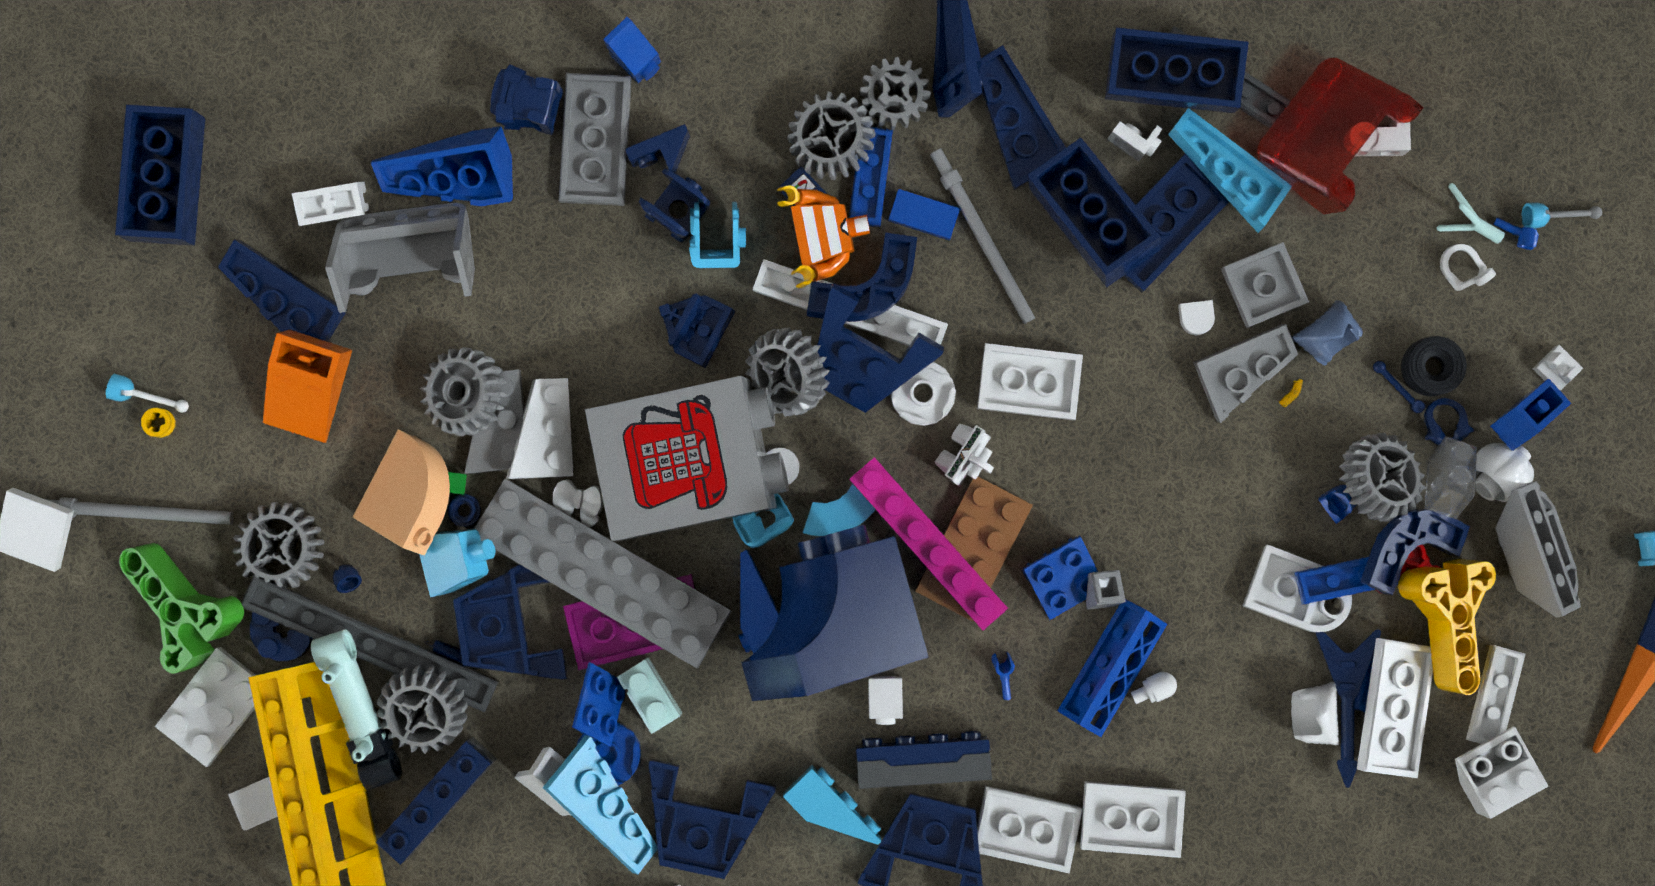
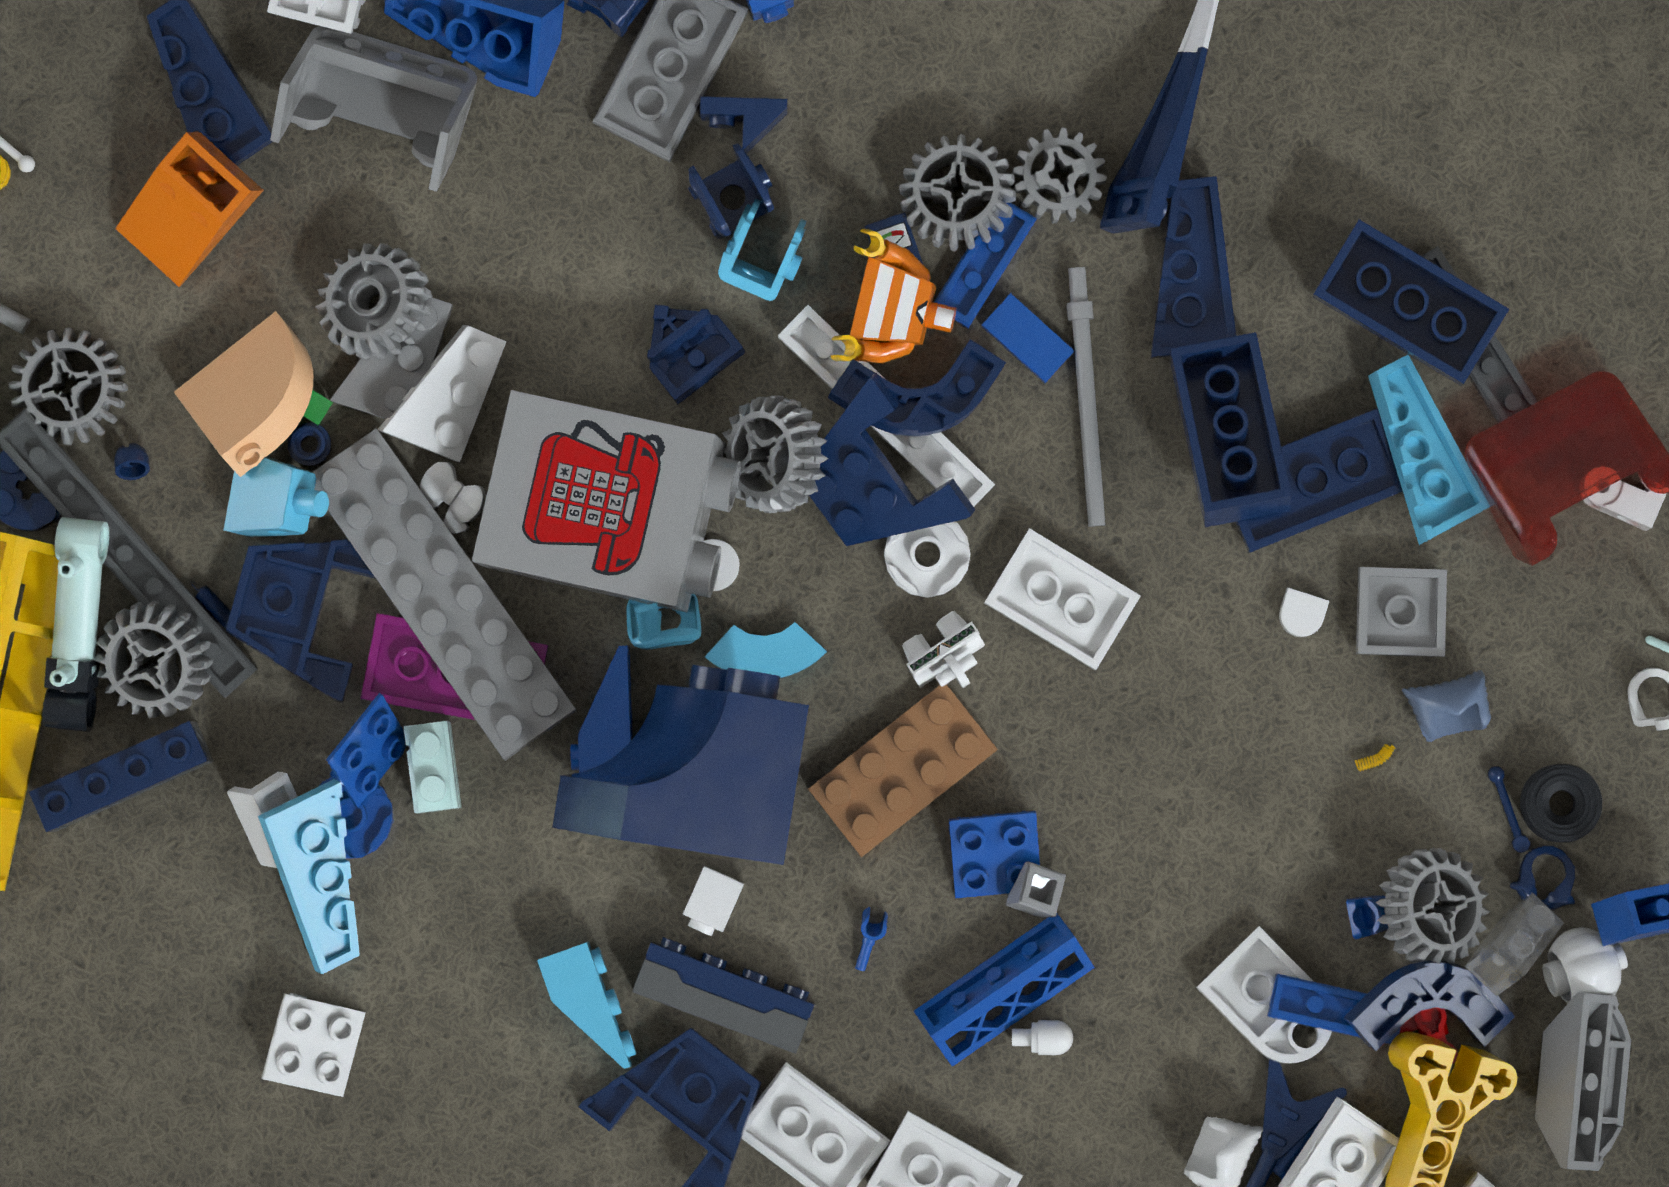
camera: 20 degrees right, 0 degrees up
(697, 835) = (415, 963): dark blue wing -> none
(928, 544) = (848, 737): dark pink brick -> none
(1130, 141) = (1318, 362): white bracket -> none
(1240, 369) = (1327, 700): light grey wing -> none

